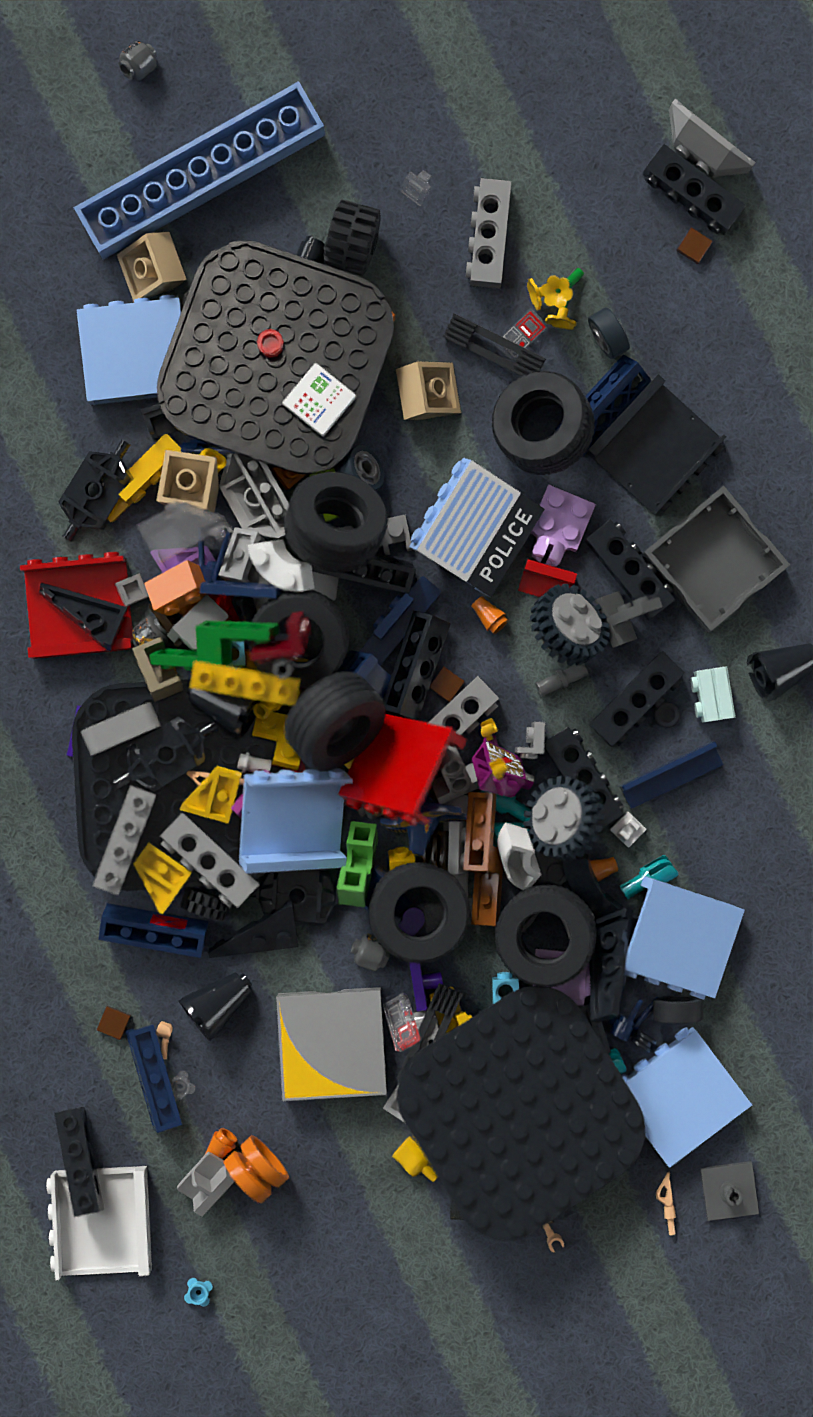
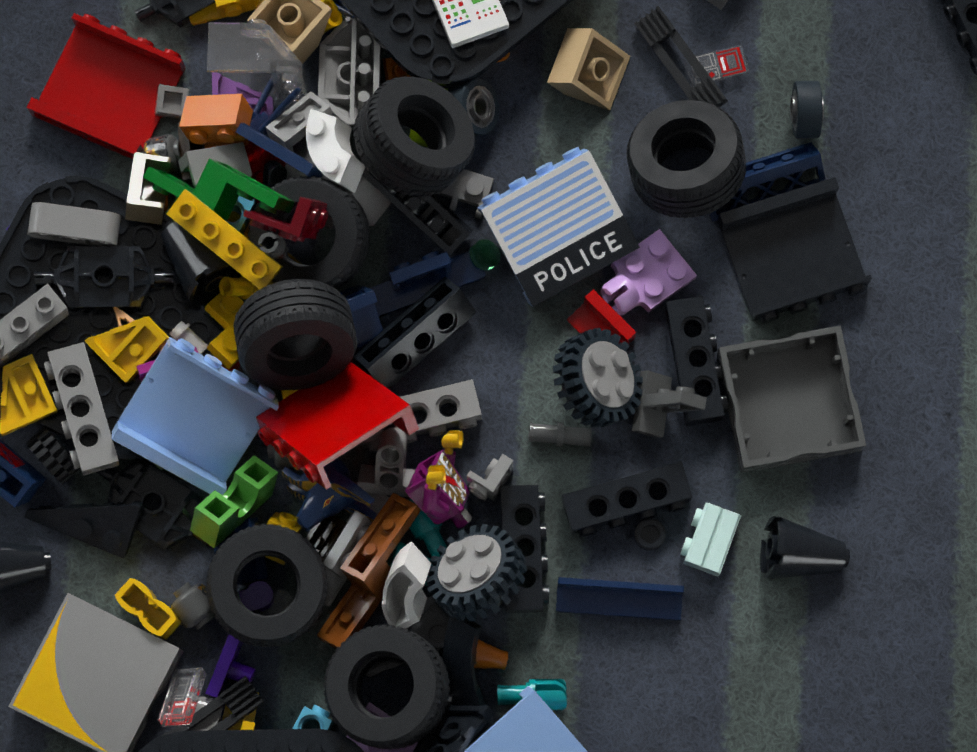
camera: 30 degrees right, 10 degrees down
(94, 616) = (117, 104): black wing -> none
(331, 972) = (143, 604): none -> yellow brick
(431, 576) = (485, 254): none -> clear green tile
(446, 684) = (436, 372): reddish brown tile -> none
(490, 615) = (522, 328): orange cone -> none
(556, 293) = (773, 35): yellow plant -> none
(628, 829) = (540, 631): white tile -> none
(694, 245) = (945, 74): reddish brown tile -> none

